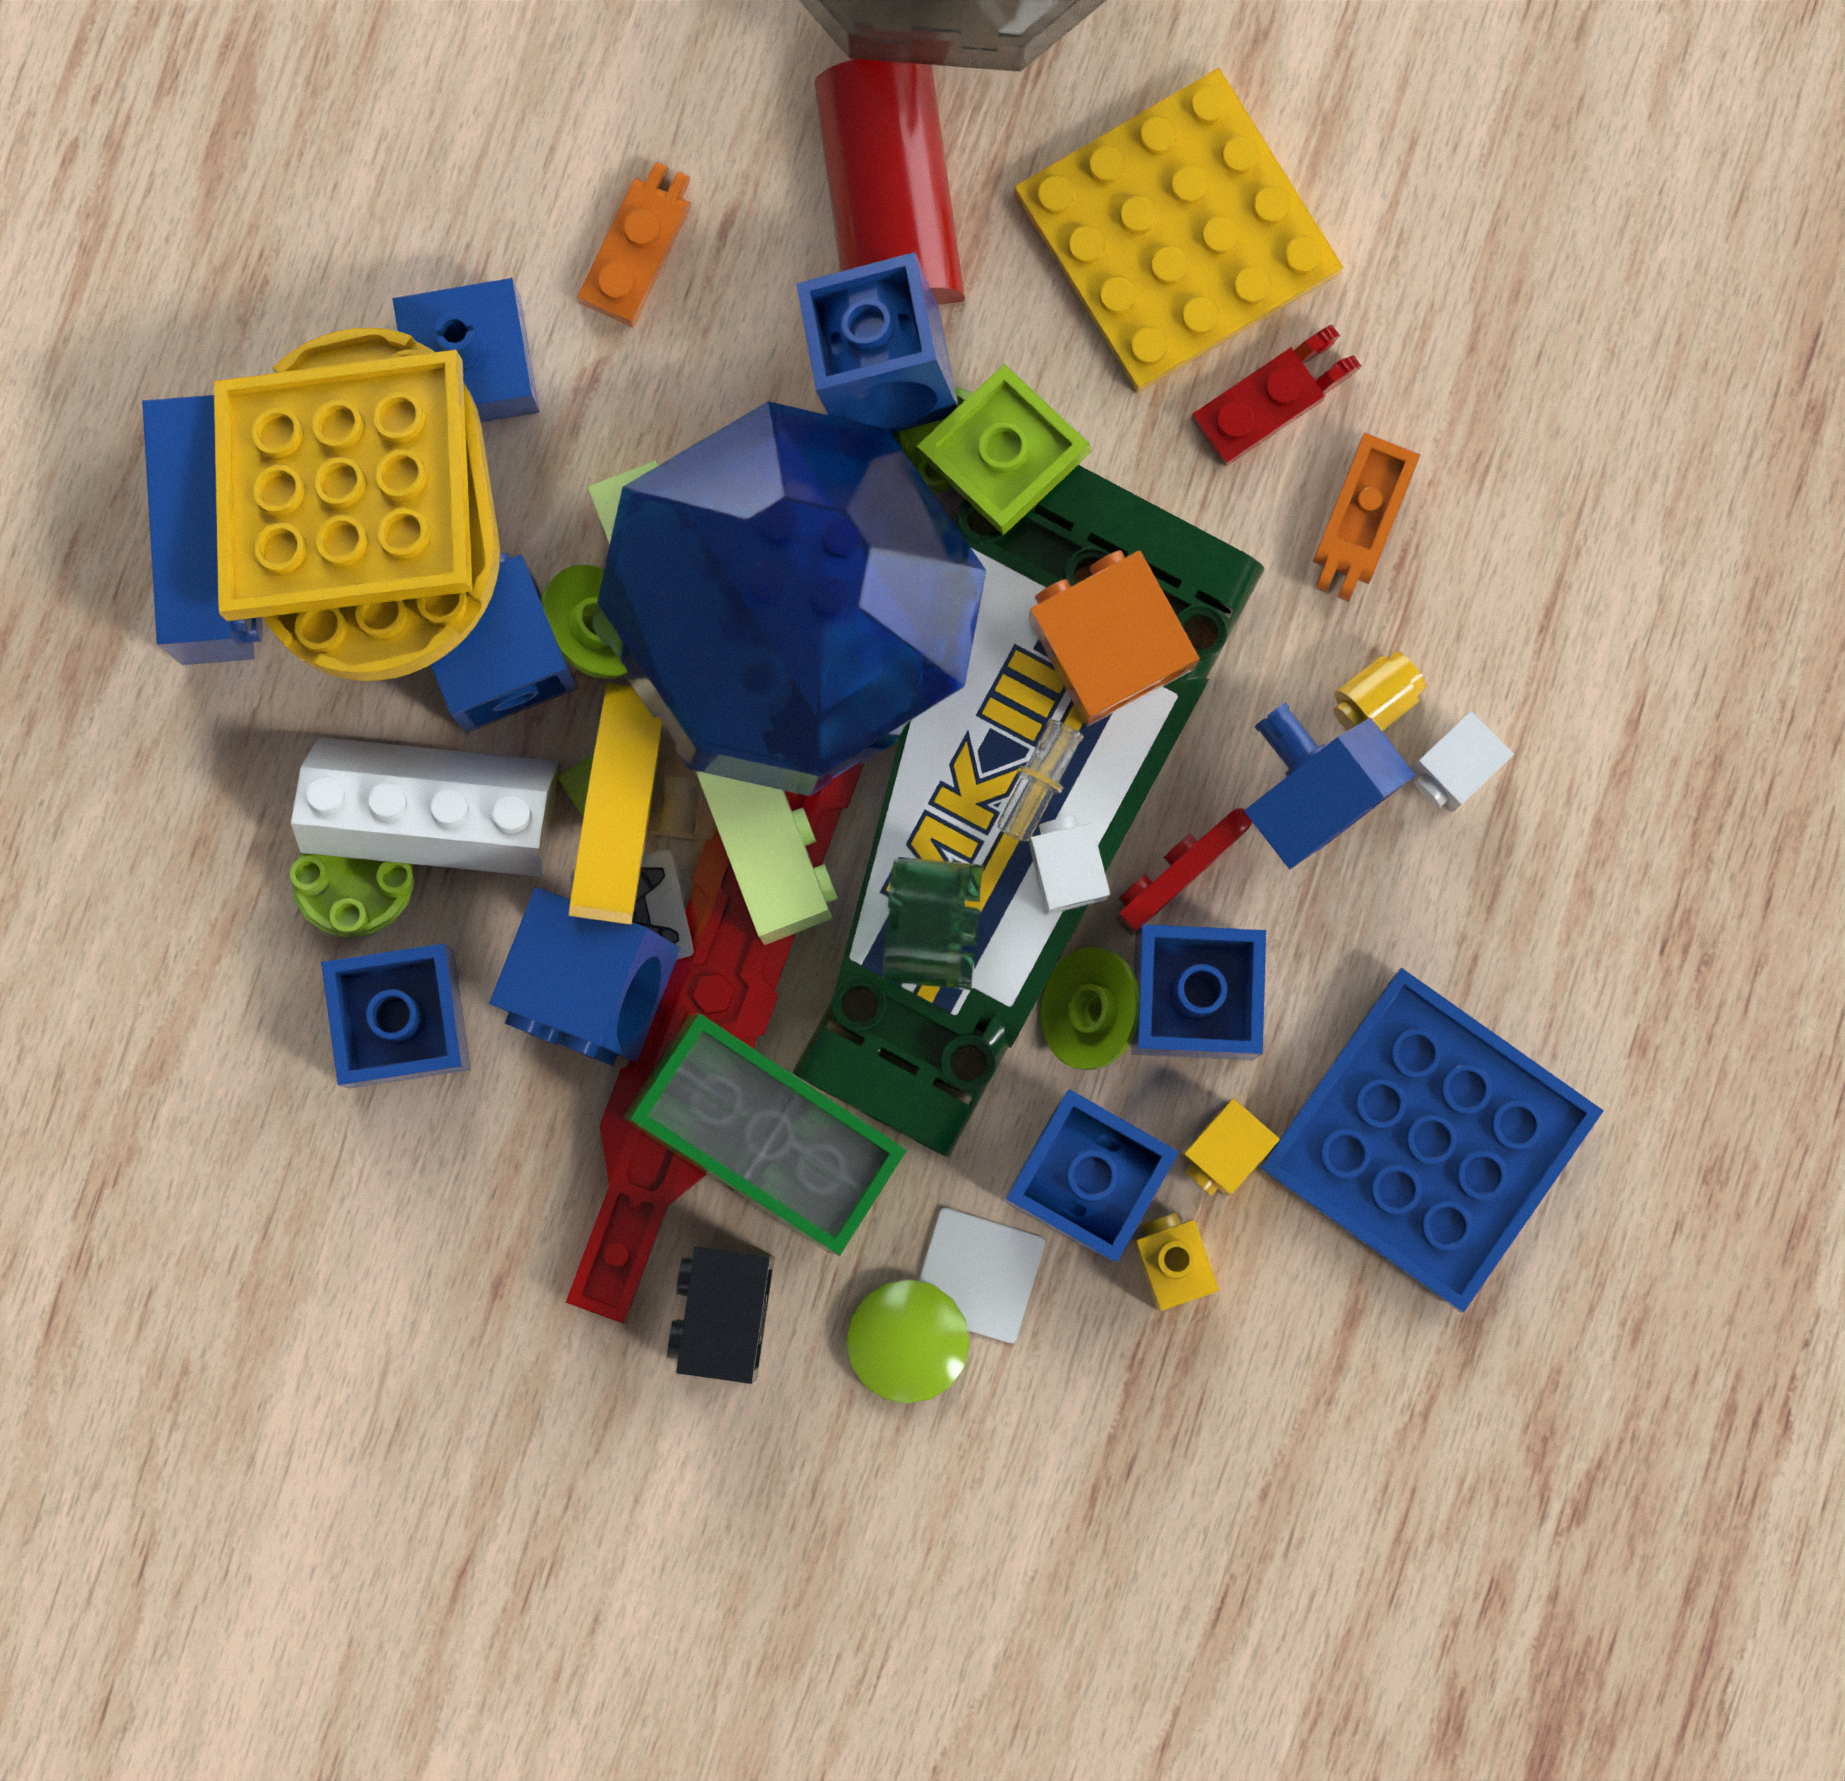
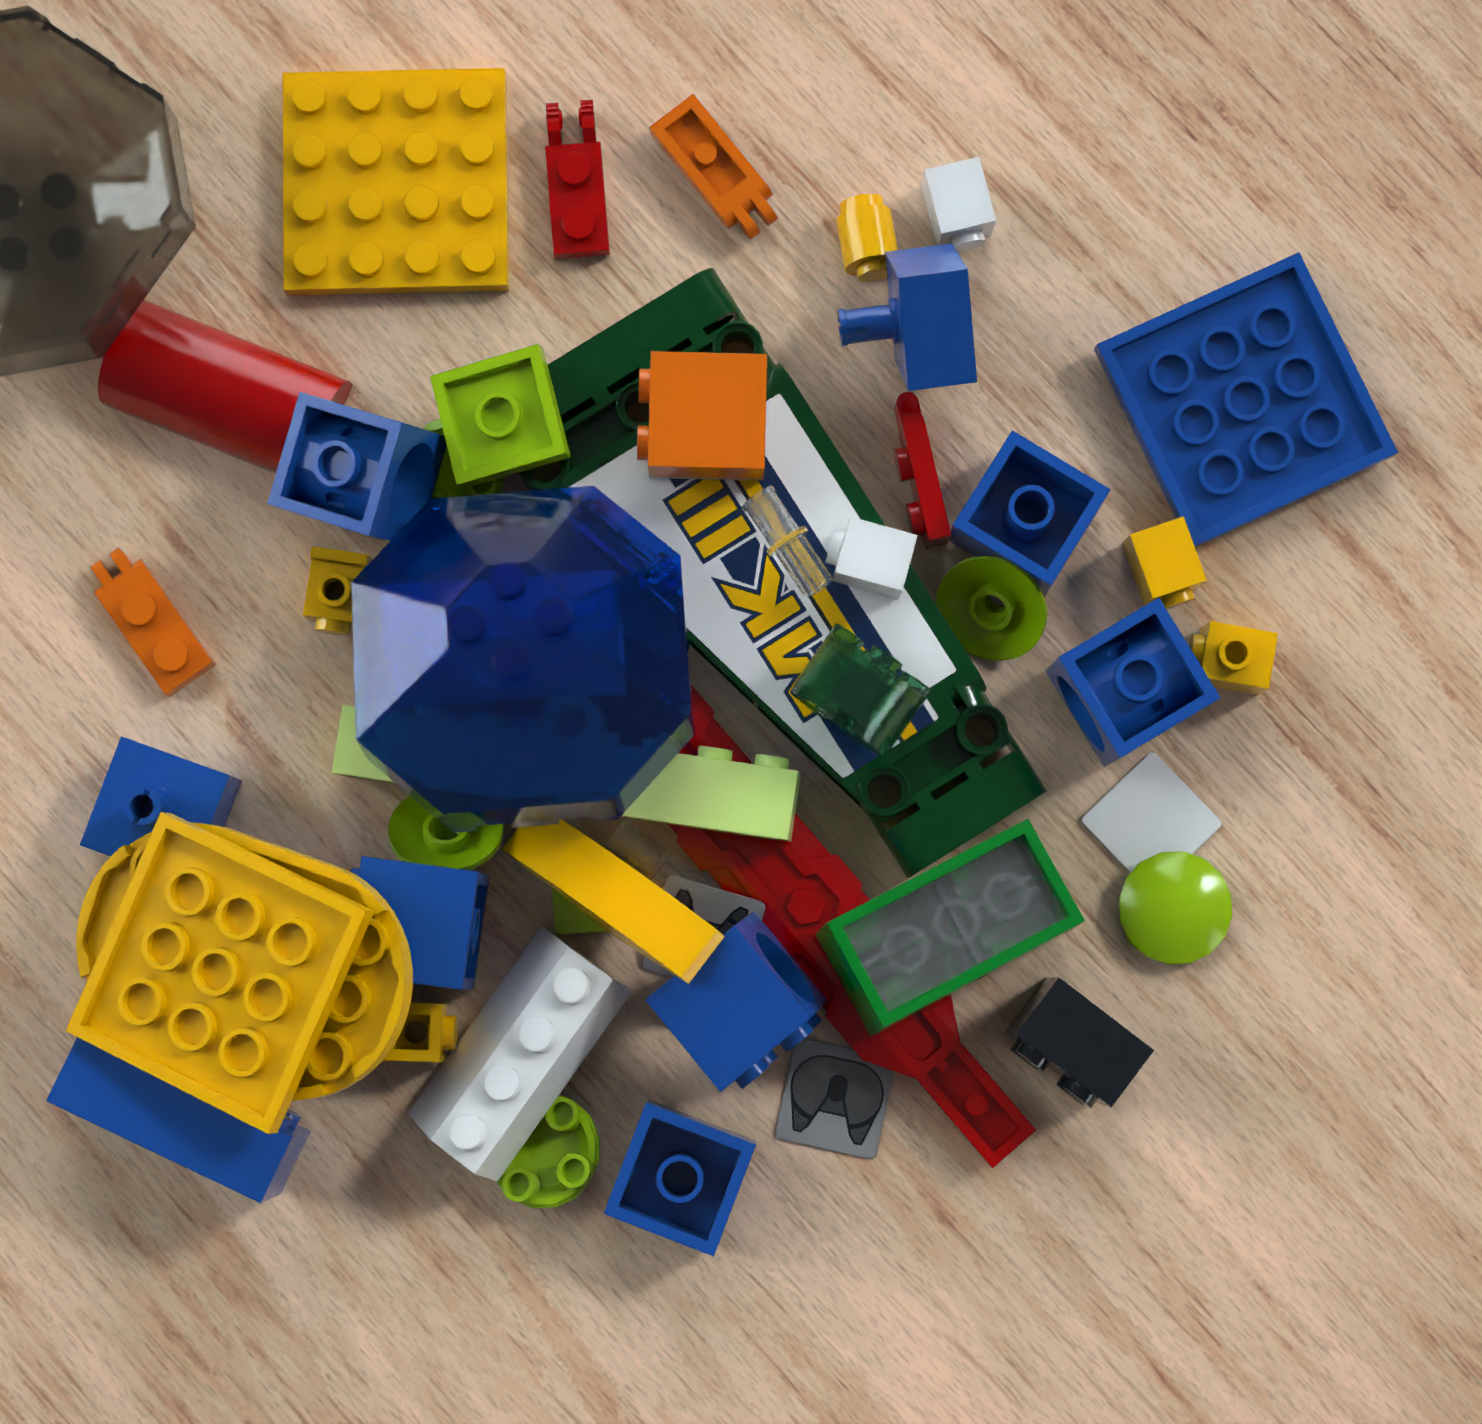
camera: 60 degrees left, 0 degrees up
(404, 725) = (440, 1035): none -> yellow brick
(549, 1122) = (833, 1100): none -> sticker
(774, 373) = (328, 567): none -> yellow brick

